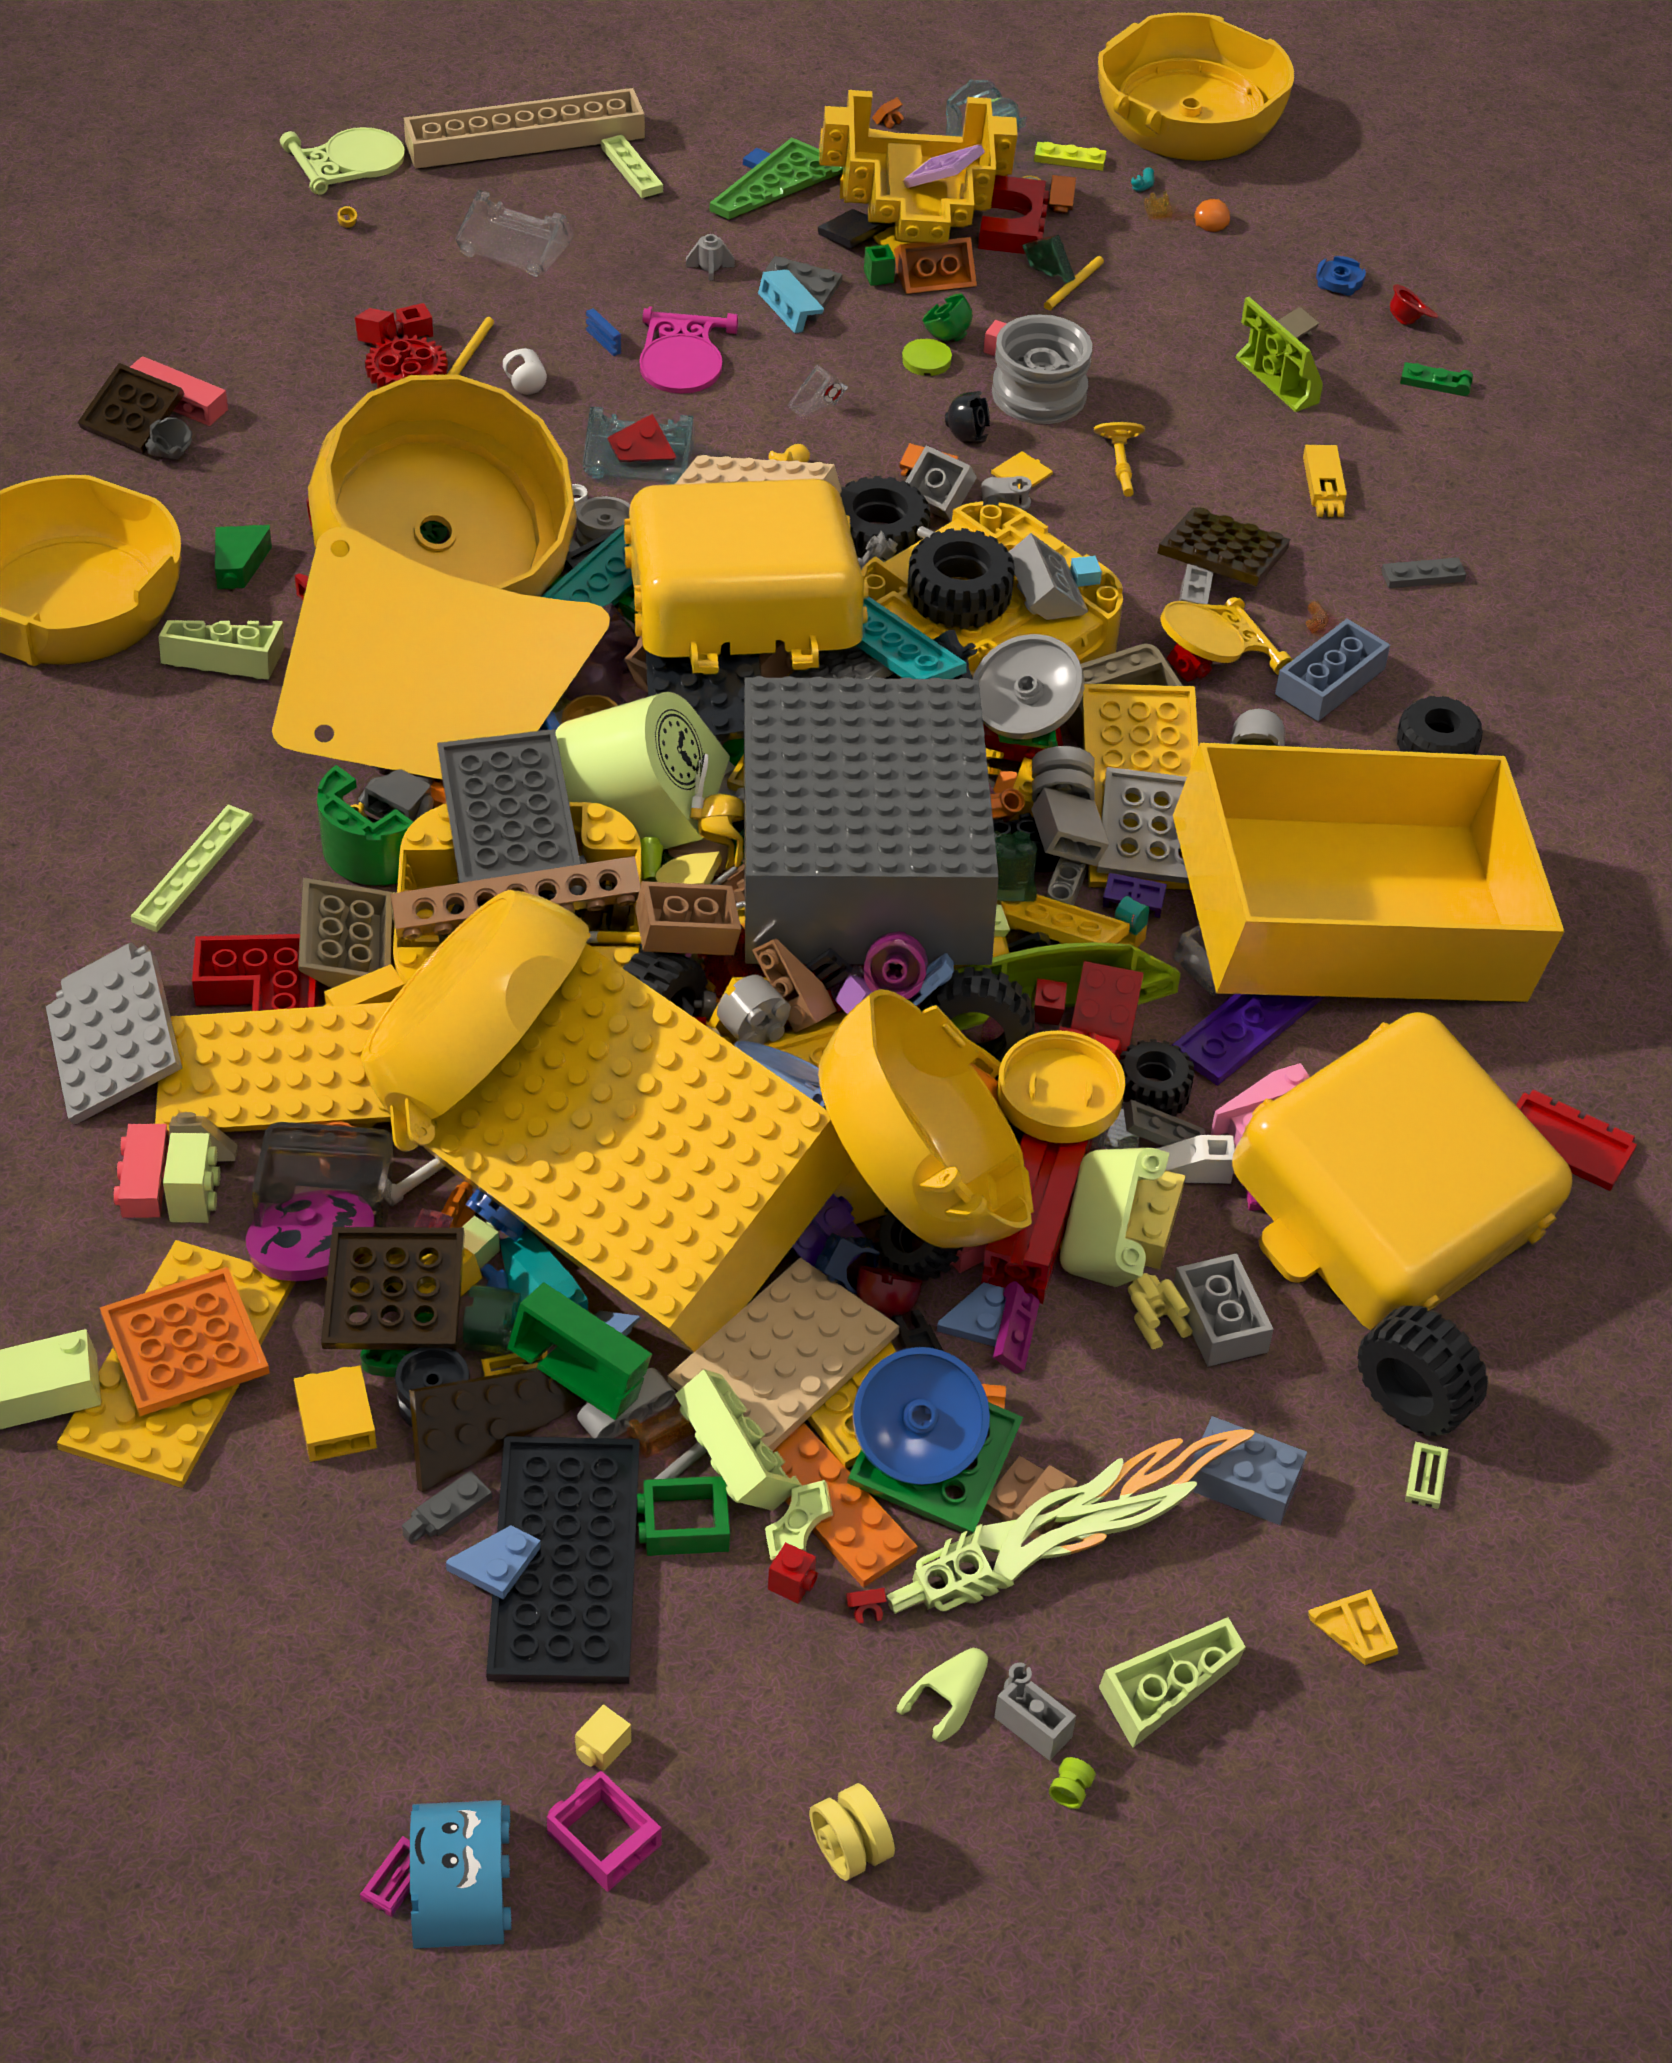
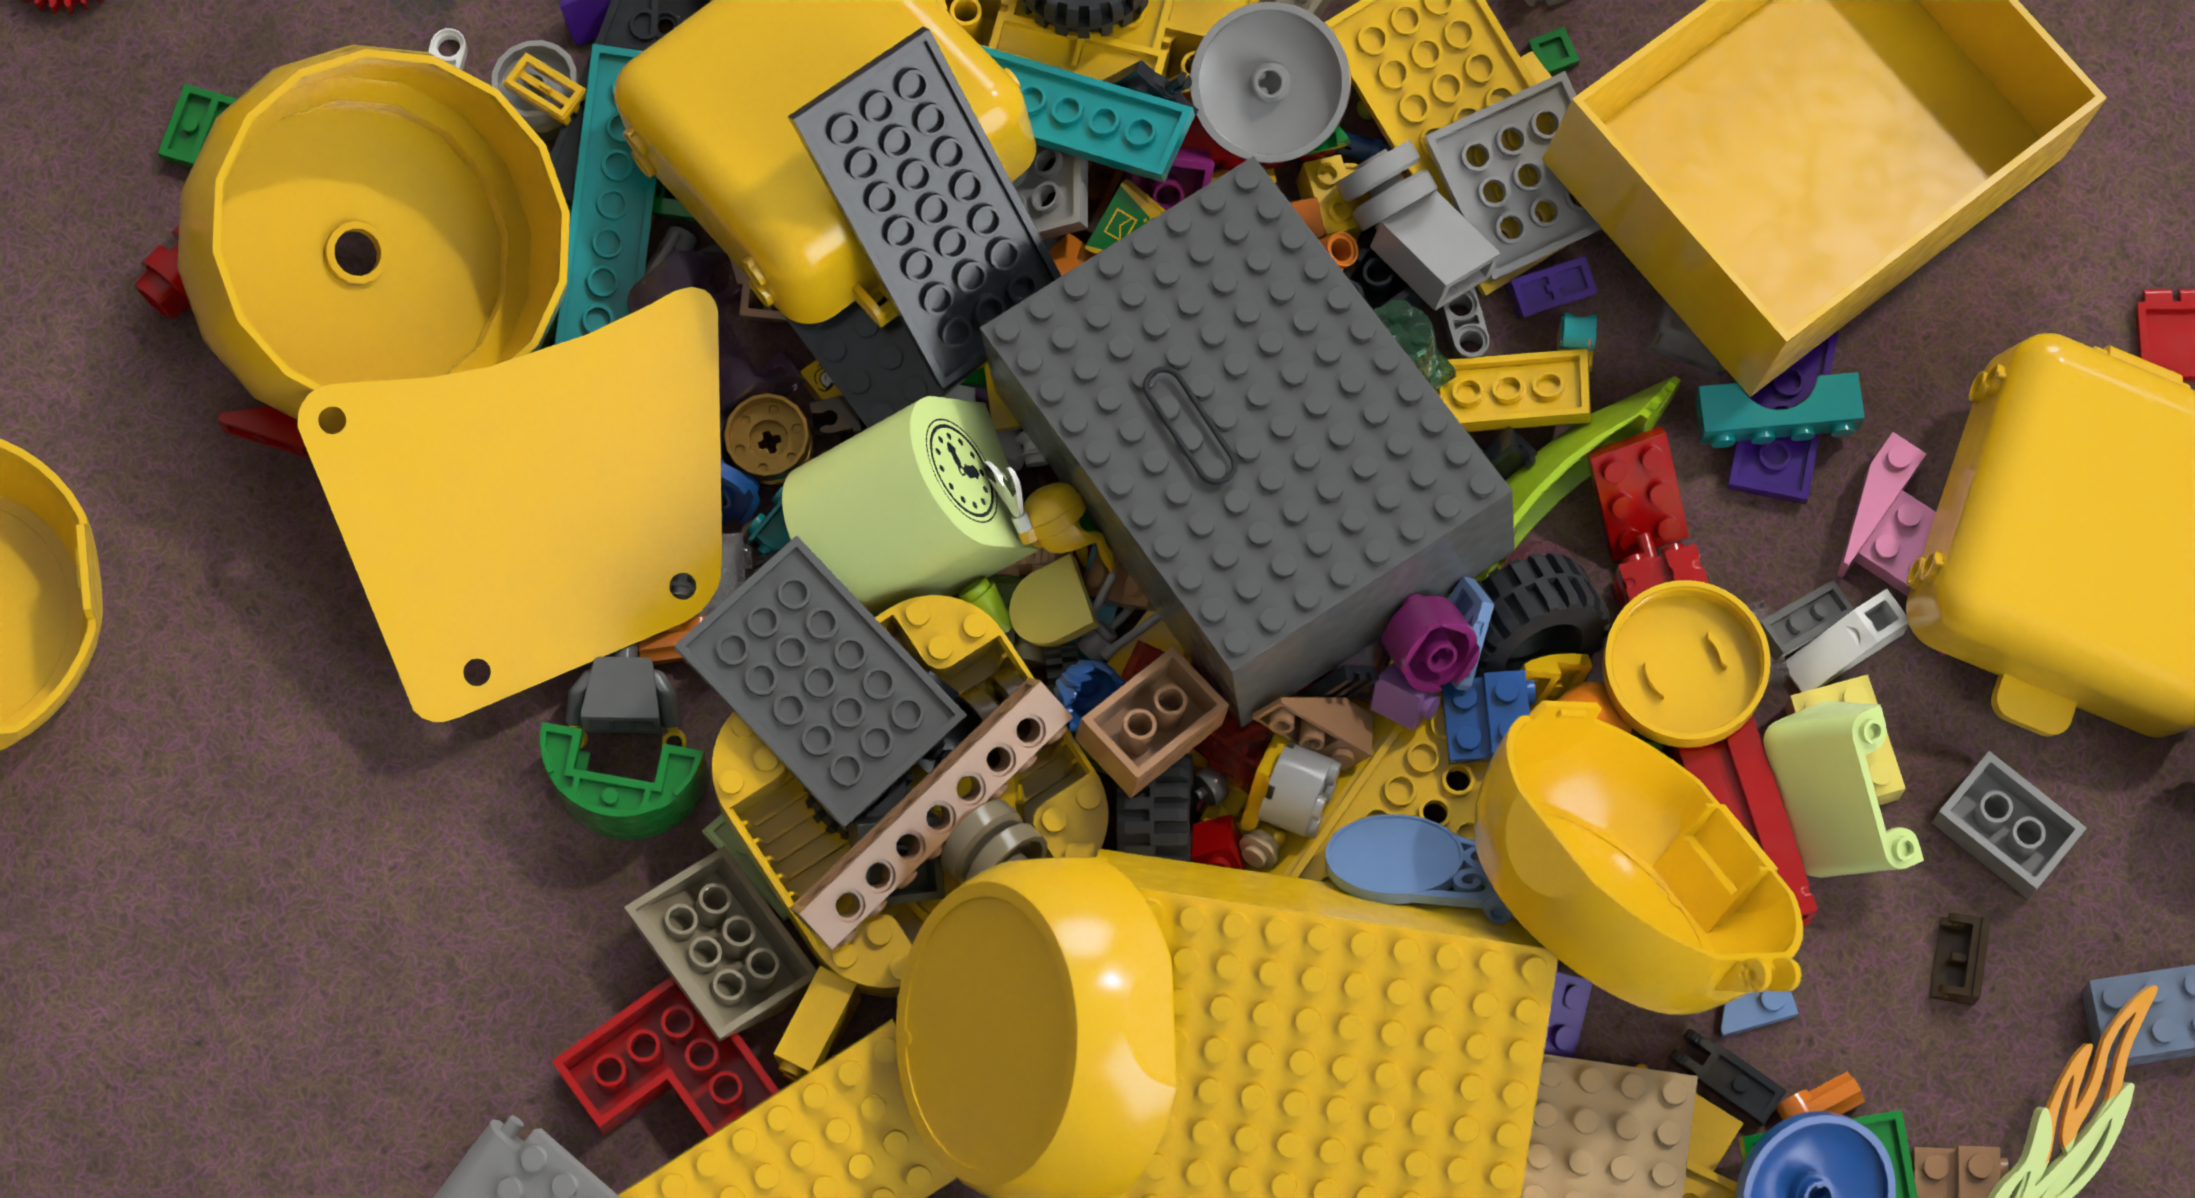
camera: 30 degrees left, 25 degrees up
(191, 868) = (440, 941): yellowish green tile -> none
(223, 647) = (218, 588): yellowish green wedge -> none
(240, 553) = (109, 421): green slope -> none
(598, 520) = (570, 105): none -> yellow tile
(614, 937) = (1055, 772): yellow bar -> none
(759, 590) = (926, 200): none -> plate
(813, 762) = (1214, 481): none -> black piece
(838, 1254) = (1590, 1029): dark blue piece -> none
(887, 1291) = (1648, 1037): dark red cylinder -> none
(1016, 1328) = (1815, 998): magenta plate -> none
(1048, 1001) = (1559, 513): red brick -> none
(1135, 1371) = (1960, 958): none -> dark brown hinge
(1153, 1301) = (1936, 853): light yellow plant -> none
(1162, 1063) = (1758, 523): black tyre -> none
(1262, 1031) = (1730, 415): none -> teal arch

